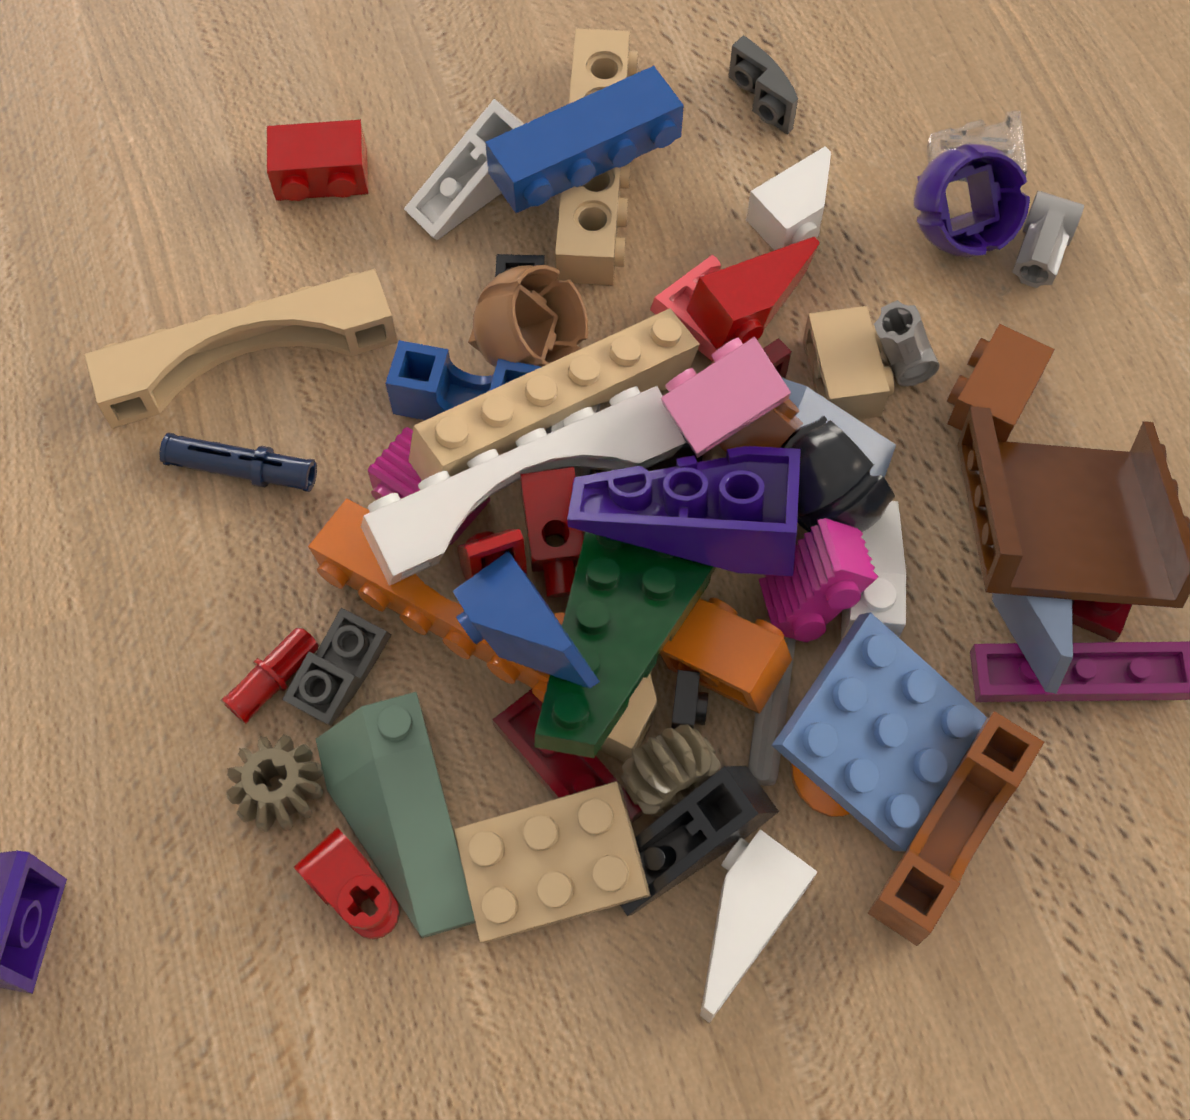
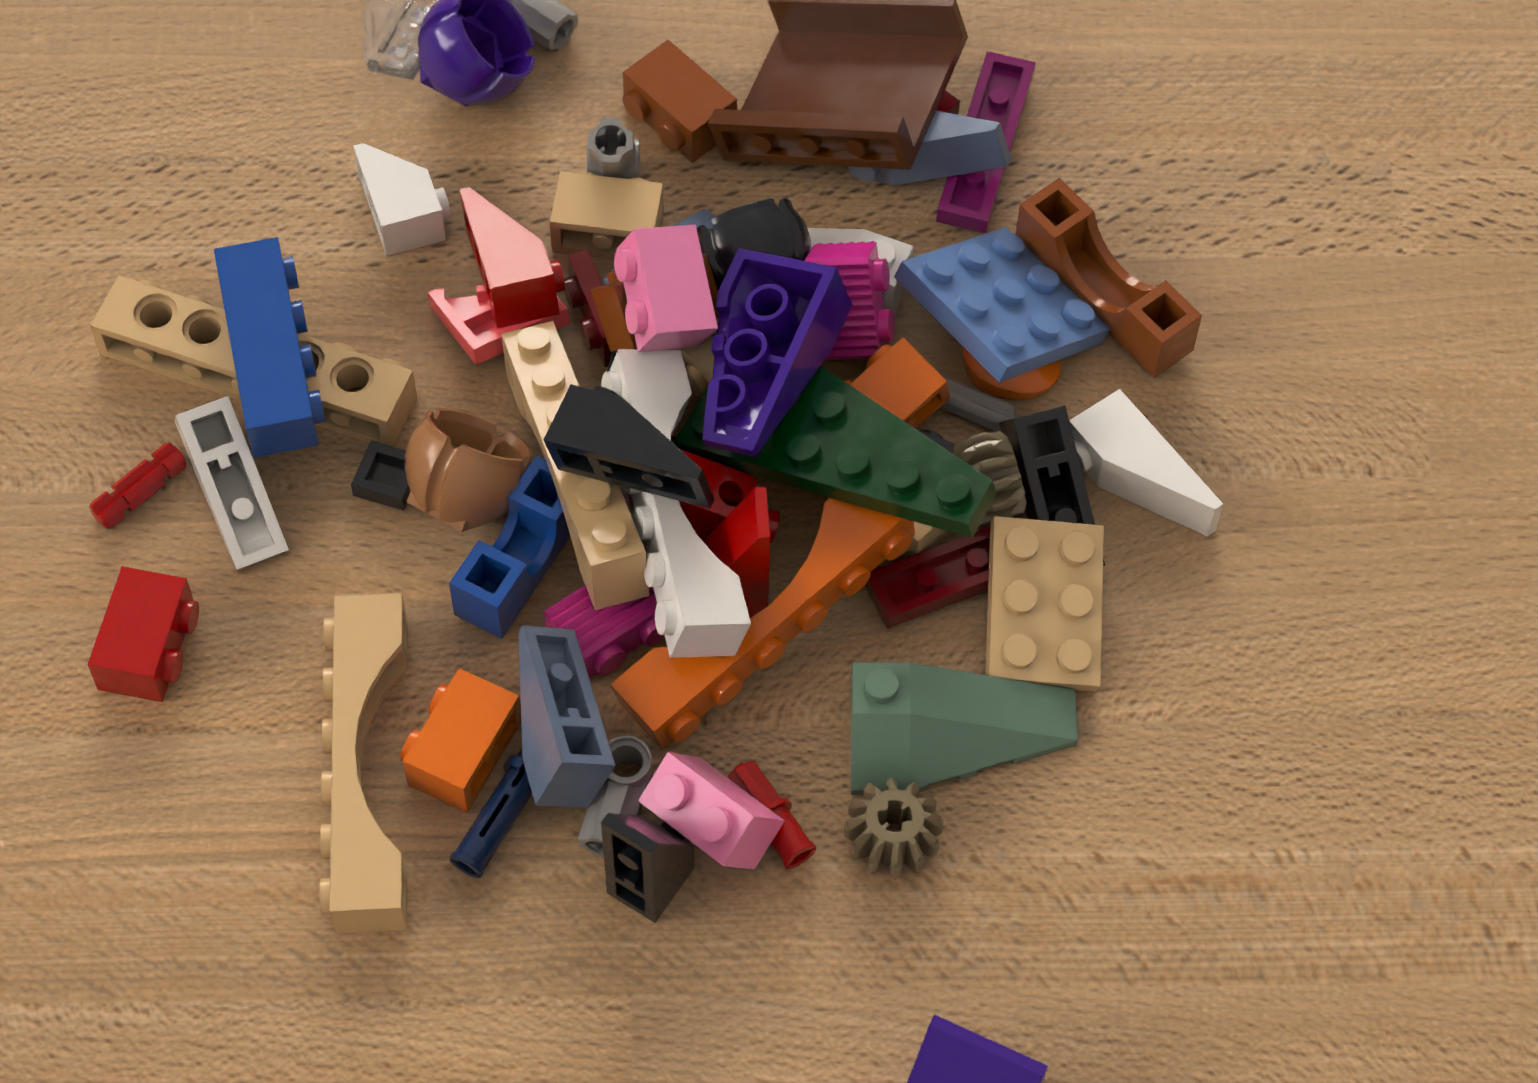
camera: 75 degrees left, 5 degrees down
(172, 568) = (644, 862): none -> black slope
(241, 616) = (711, 811): none -> bright pink brick
(250, 542) = (617, 793): none -> light grey piece
(278, 408) = (461, 739): none -> orange brick
(297, 461) = (560, 720): none -> sand blue slope
(338, 668) = (789, 759): dark grey slope -> none
(344, 881) = (1007, 786): red piece -> none
(448, 113) = (138, 485): none -> red axle
(518, 623) = (847, 516): blue slope -> none
(534, 409) = (612, 442): none -> black slope
(758, 73) = (249, 175): dark grey slope -> none

